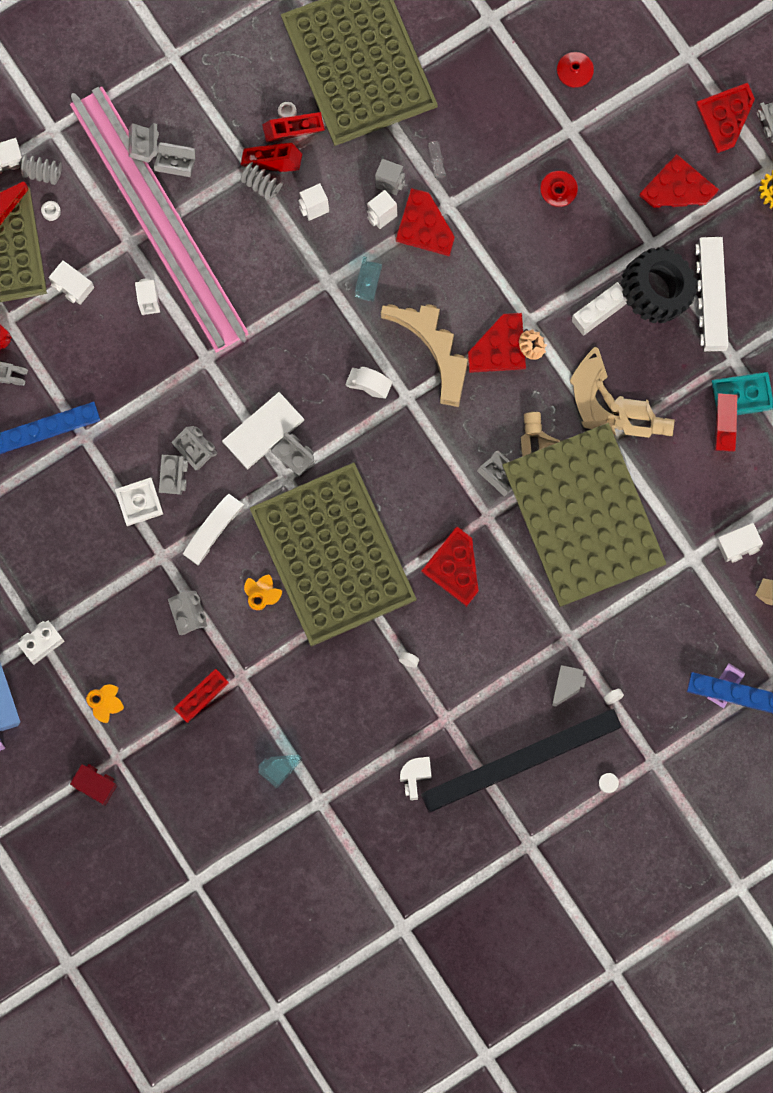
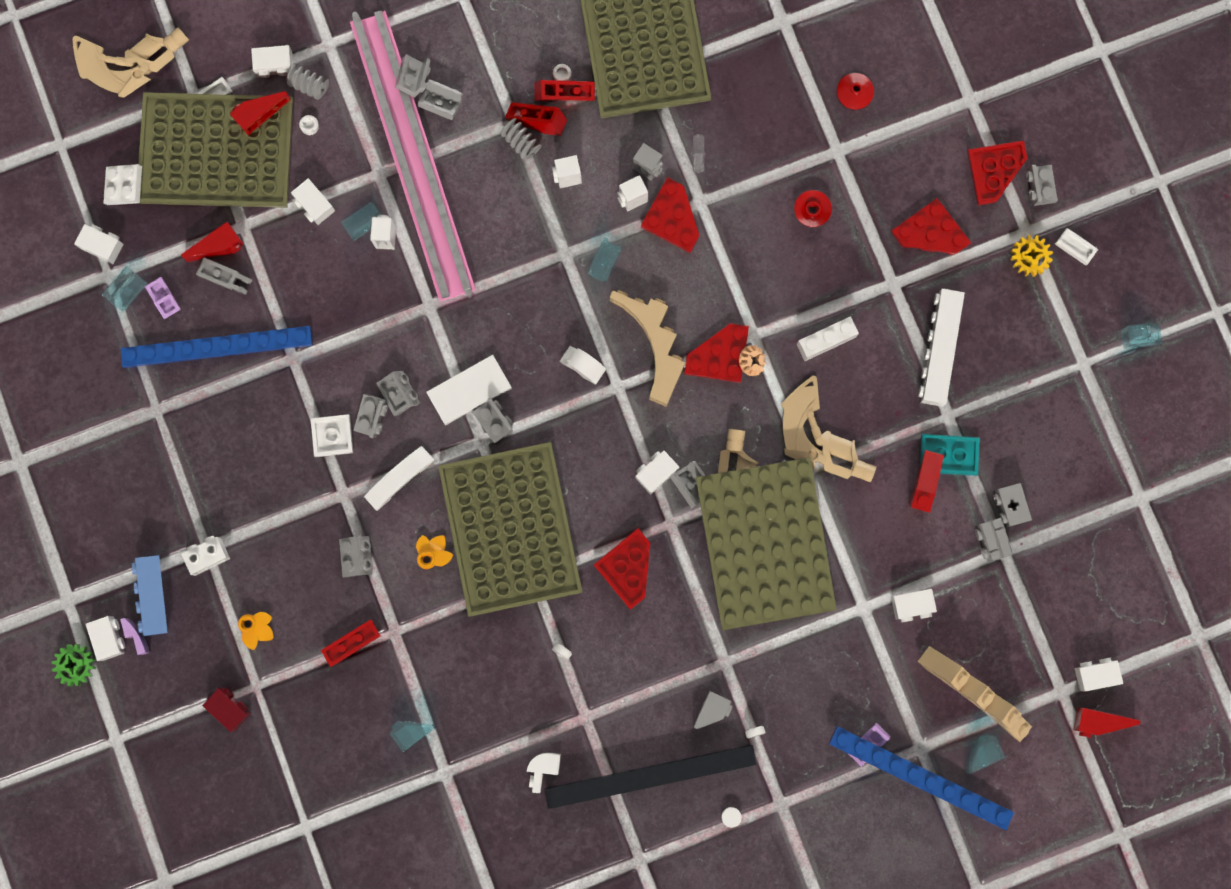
camera: 10 degrees right, 5 degrees up
(122, 292) = (360, 221): none -> clear light blue panel
(463, 469) = (656, 472): none -> white brick
(675, 274) = (909, 320): black tyre -> none

